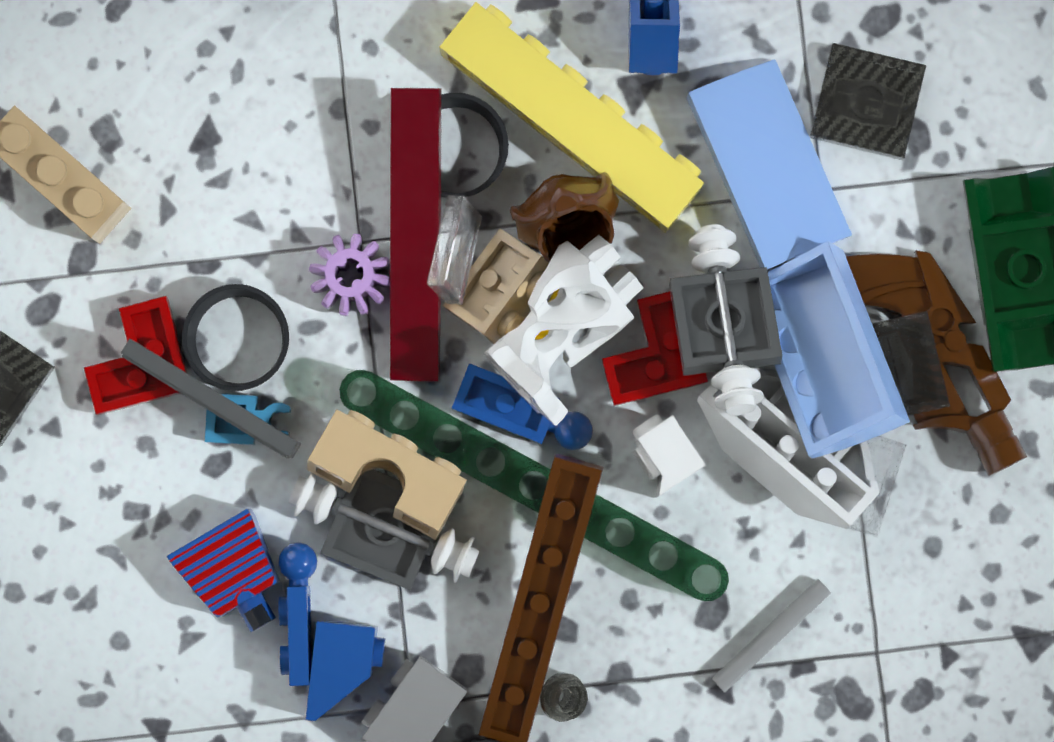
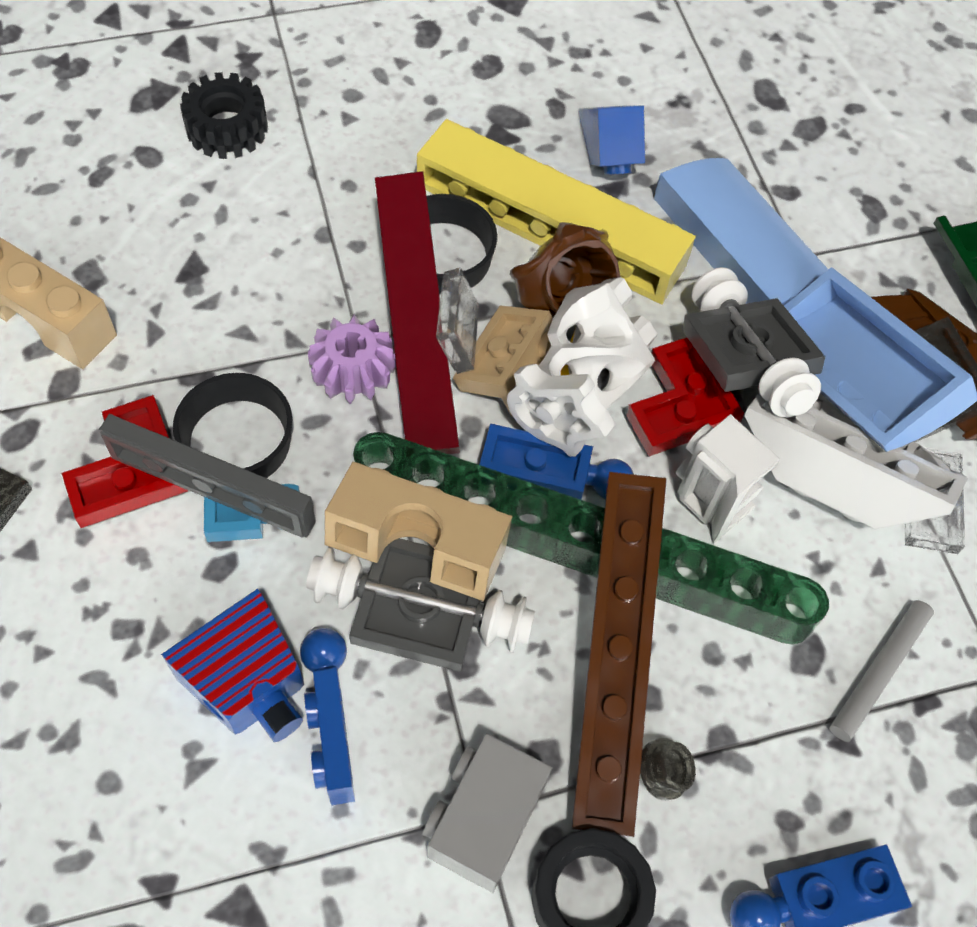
camera: 15 degrees left, 25 degrees down
(341, 663) = (388, 763): blue slope -> none
(867, 101) = (821, 183): clear smoke tile -> none

